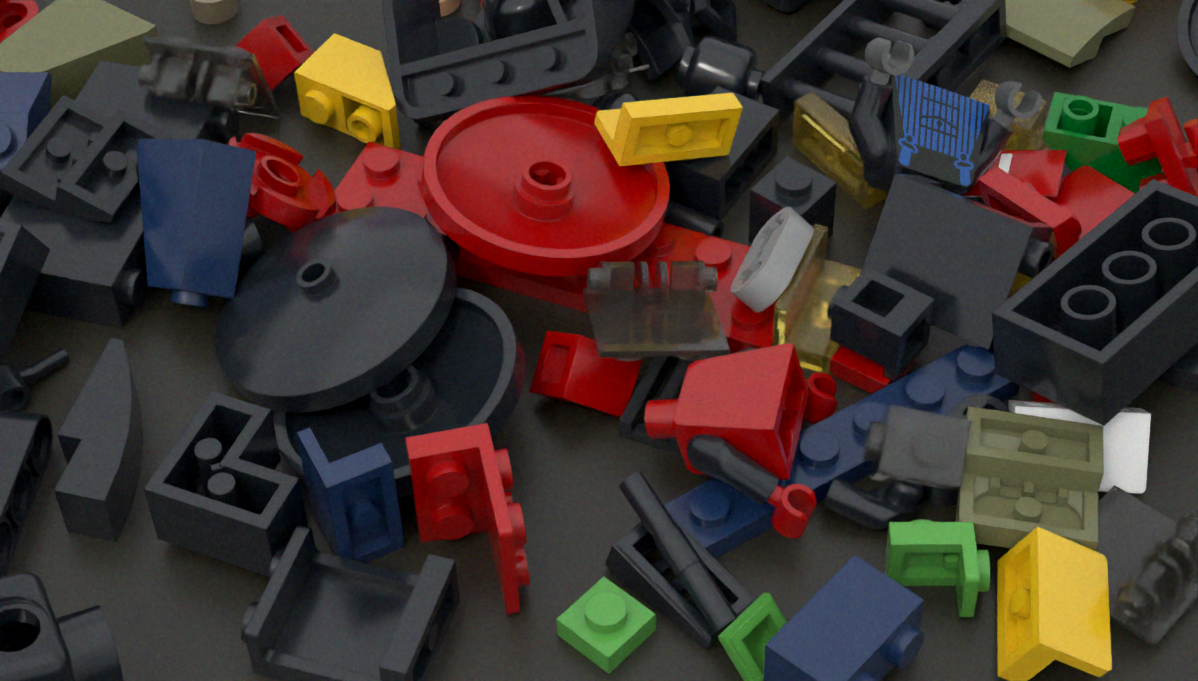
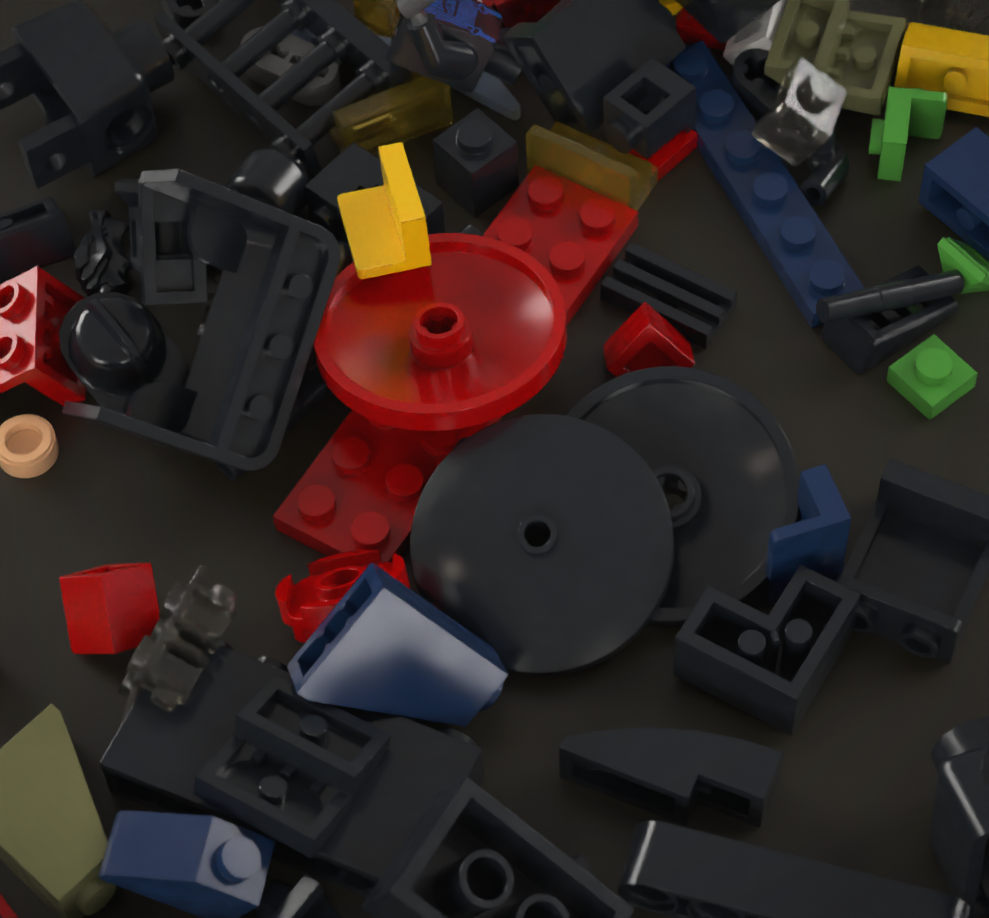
camera: 80 degrees left, 10 degrees up
(349, 91) = (197, 520): yellow slope -> none
(461, 492) = (849, 420): red bracket -> none
(656, 320) = (624, 270): clear smoke hinge -> none
(743, 425) = (756, 225): red torso -> none
(772, 259) = (570, 161): light grey beam -> none

